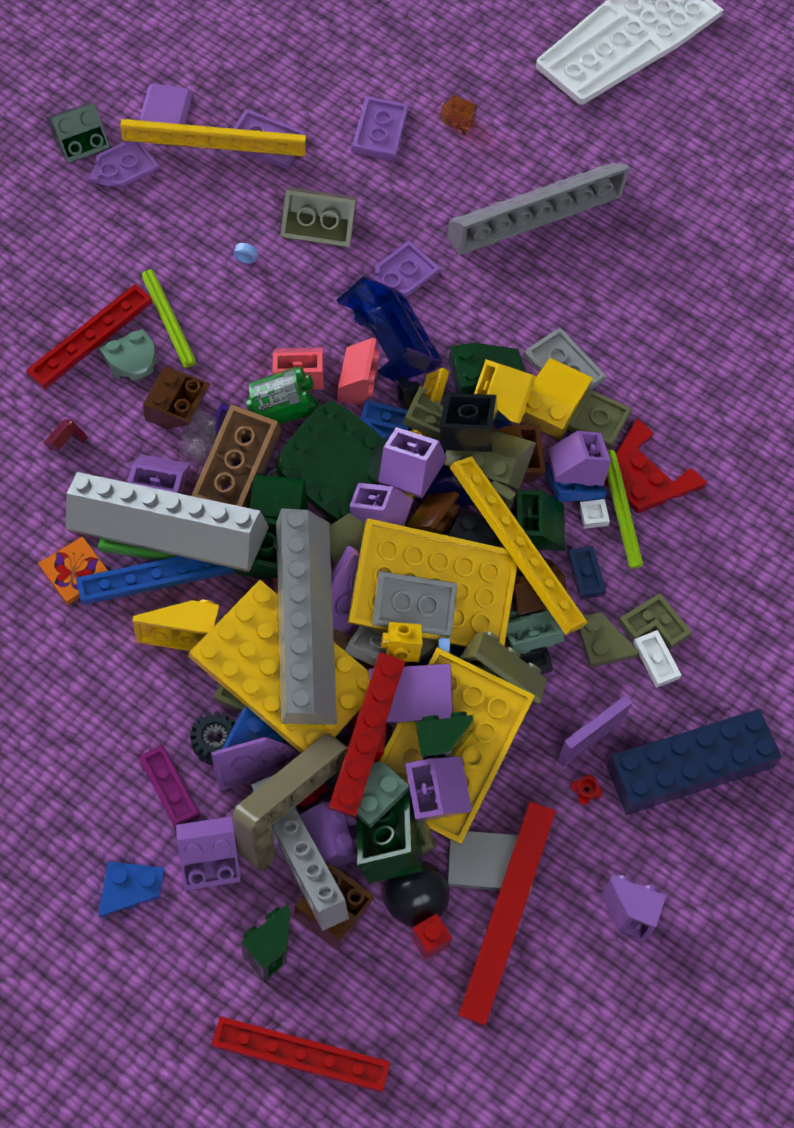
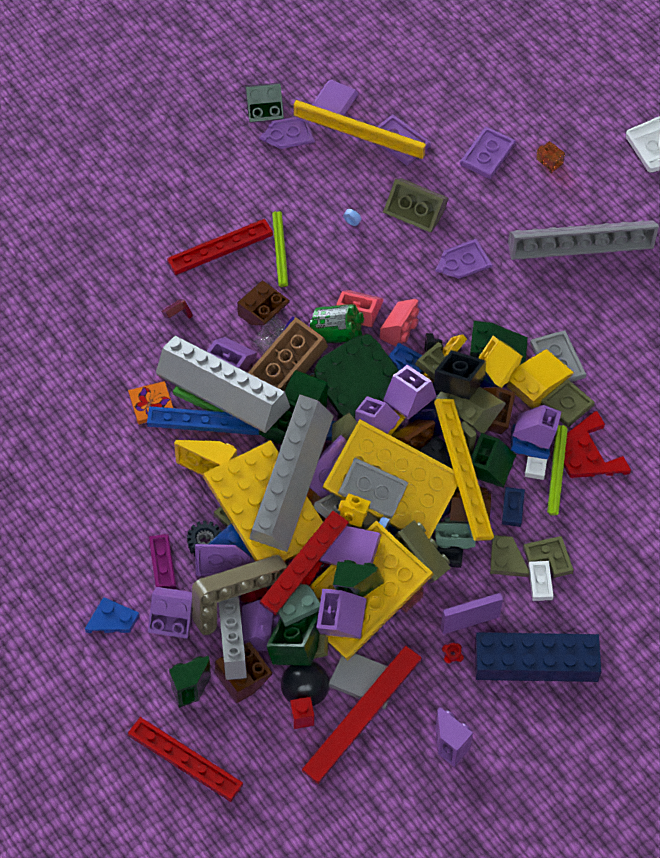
camera: 25 degrees right, 5 degrees down
(130, 355) = (243, 267): sand green slope -> none
(394, 326) = (441, 295): clear blue windscreen -> none

